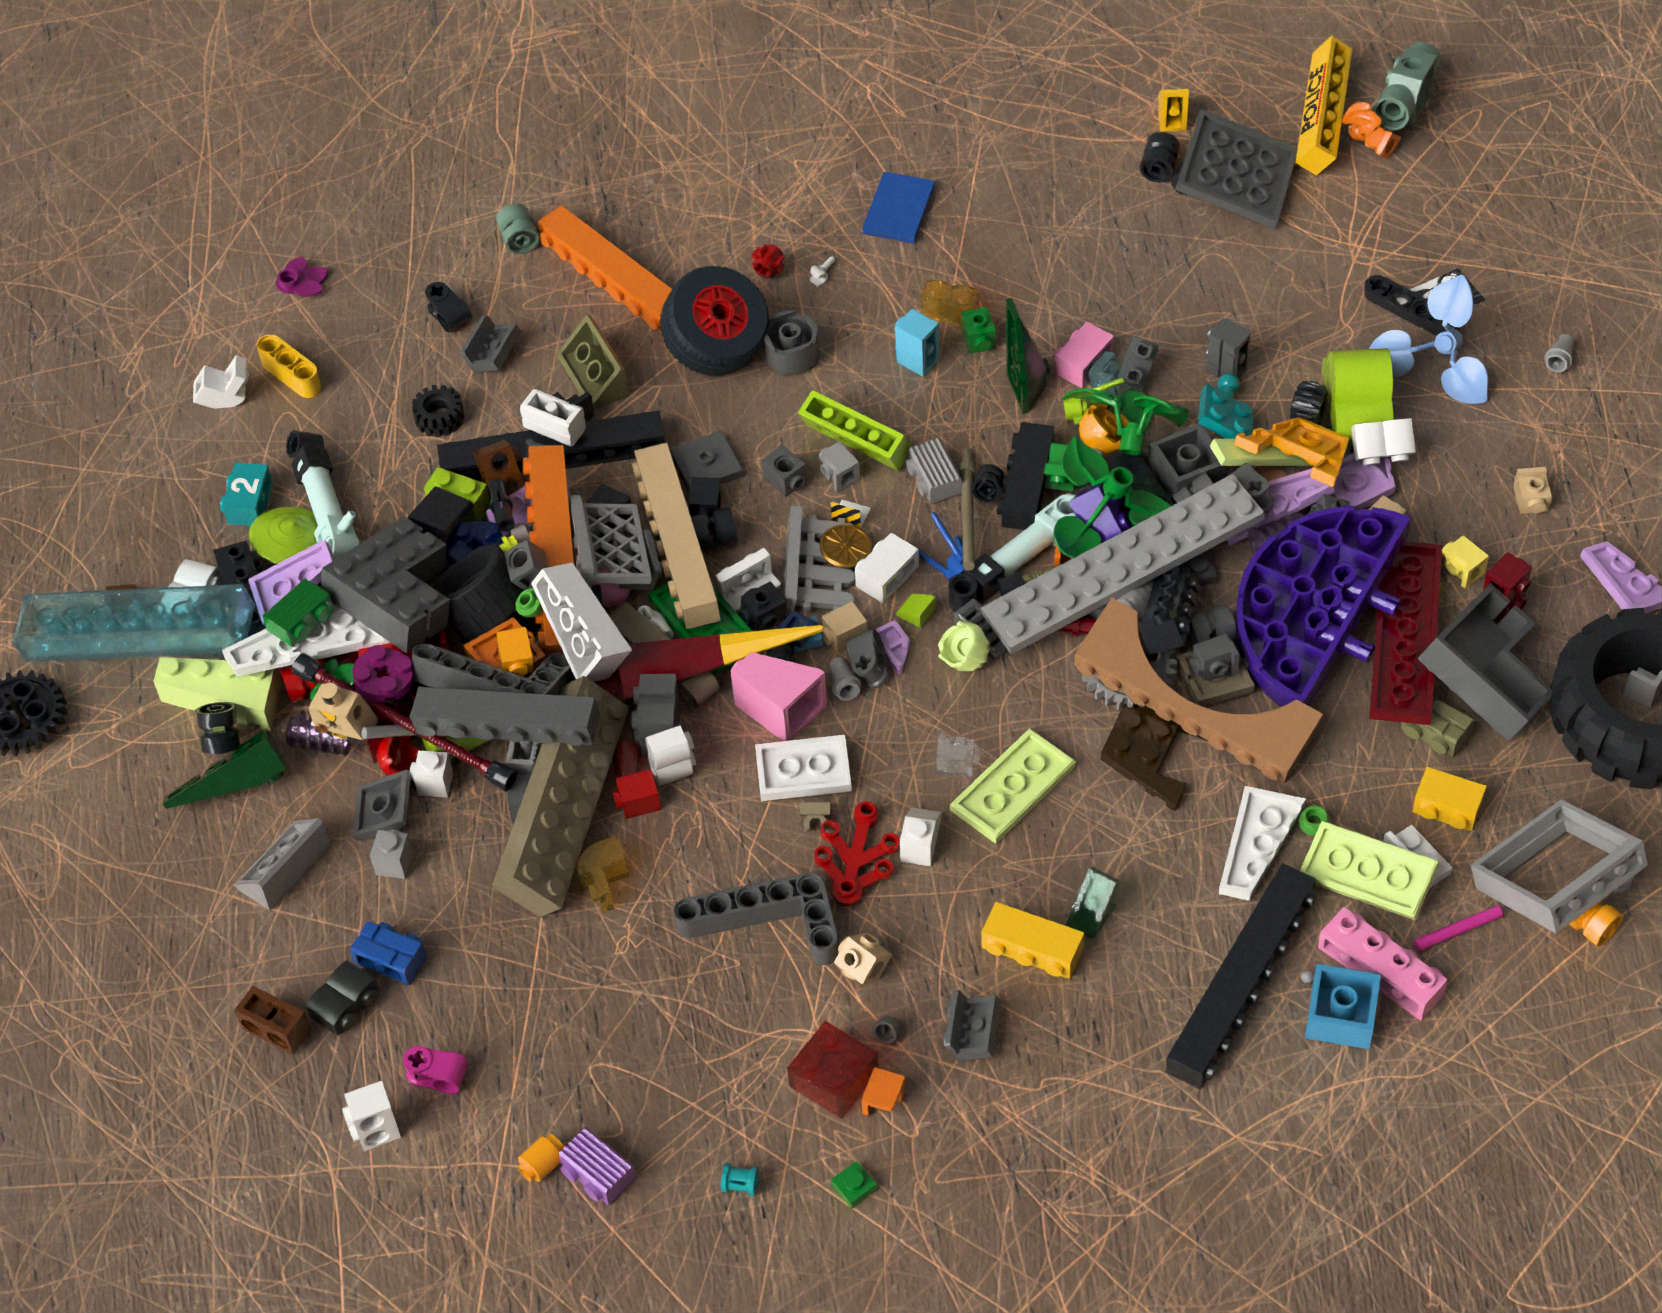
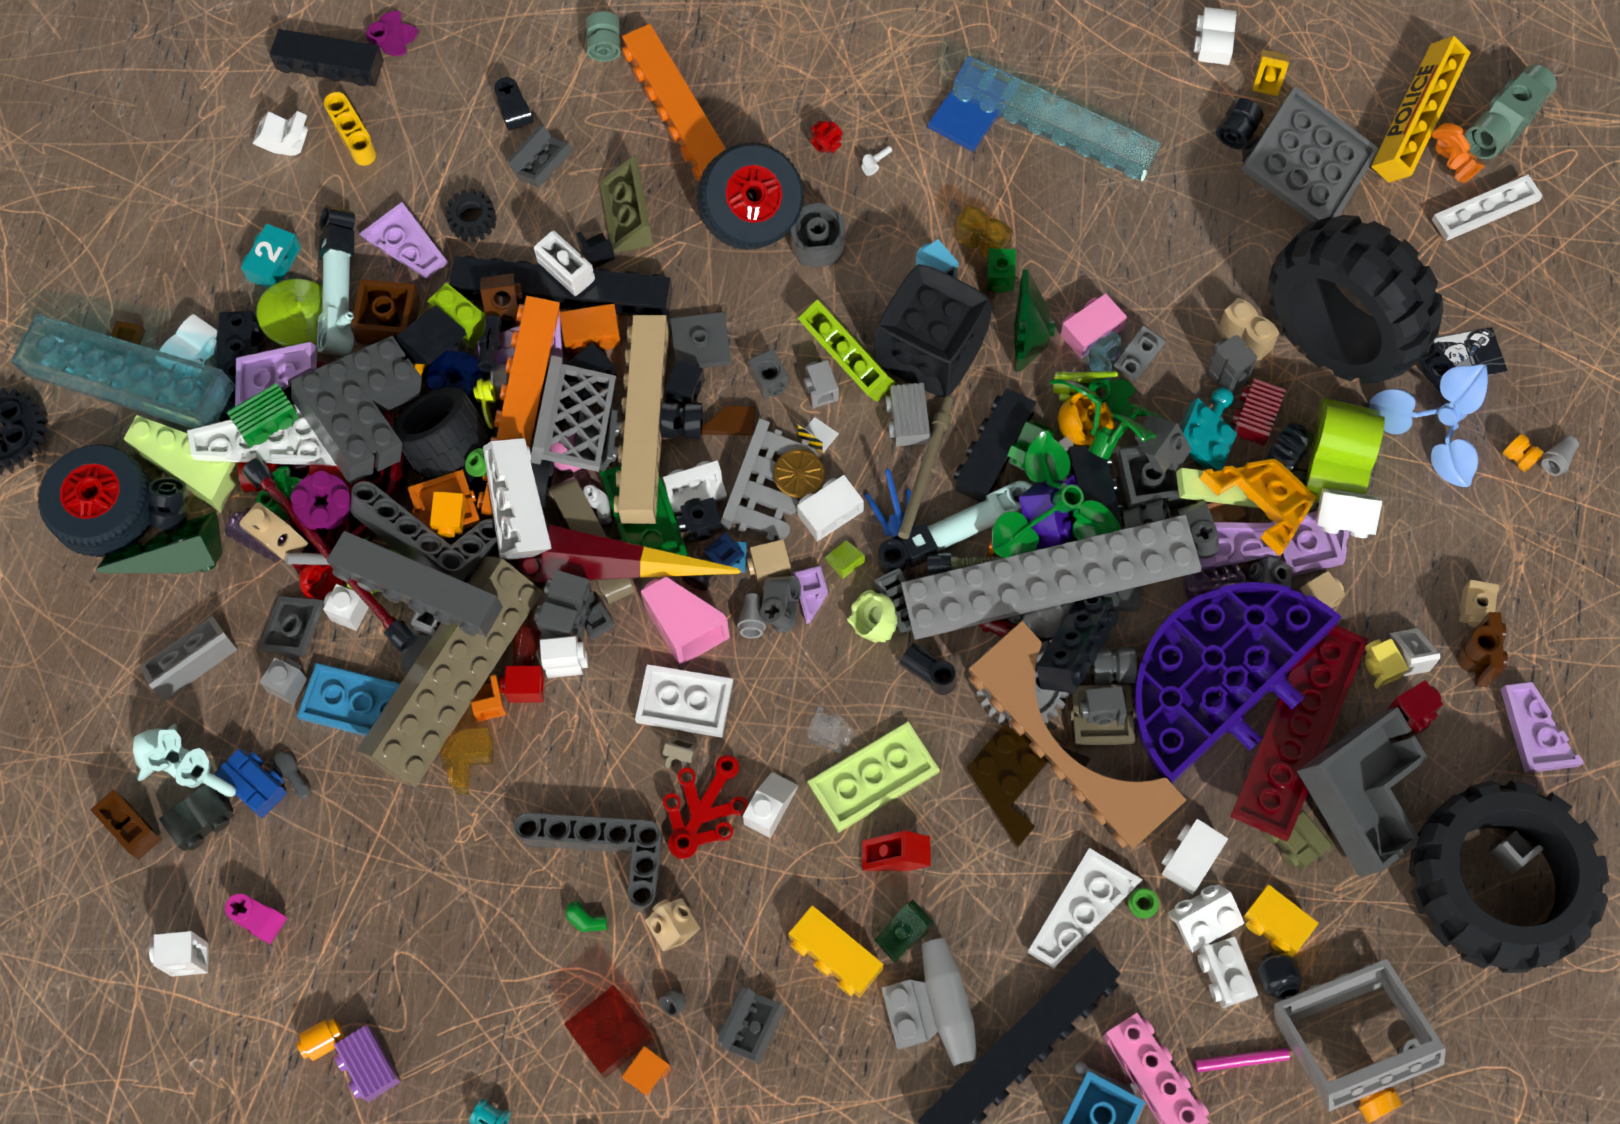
camera: 15 degrees right, 15 degrees up
(142, 744) = (95, 500): none -> black wheel
(243, 311) = (326, 57): none -> black brick
(324, 948) = (162, 750): none -> light aqua animal
(379, 448) = (405, 240): none -> lavender wing
(380, 504) = (383, 310): none -> reddish brown brick
(422, 930) = (287, 768): none -> dark grey piece
(459, 857) = (345, 699): none -> dark azure tile
(525, 563) = (485, 423): dark grey brick -> none
(592, 470) = (589, 326): none -> orange brick
(608, 818) = (489, 701): none -> orange panel
(693, 722) = (598, 621): none -> dark grey tile
(762, 521) = (731, 421): none -> reddish brown tile
(771, 984) = (582, 921): none -> green arm
(934, 385) = (932, 330): none -> black piece
(984, 193) = (1055, 118): none -> clear light blue brick
(992, 478) = (954, 443): black wheel -> none
(1035, 678) = (928, 667): none -> black piece
(1060, 839) = (896, 852): none -> red slope
(1110, 92) = (1216, 35): none -> white brick
(1148, 958) = (933, 1006): none -> light grey plate
(1192, 424) = (1169, 446): none -> dark grey brick
(1245, 315) = (1254, 330): none -> tan brick
(1267, 386) = (1259, 411): none -> dark red brick
(1347, 767) = (1194, 855): none -> white brick
(1349, 220) = (1380, 274): none -> black tyre
(1369, 870) = (1175, 977): yellowish green tile -> none
(1381, 812) = (1206, 916): none -> white bracket
(1415, 171) = (1486, 207): none -> white plate
(1465, 843) = (1279, 975): none -> black head
(1493, 543) = (1415, 650): none -> white slope
(1525, 358) = (1523, 453): none -> light orange wheel
(1553, 523) = (1484, 650): none -> reddish brown plate

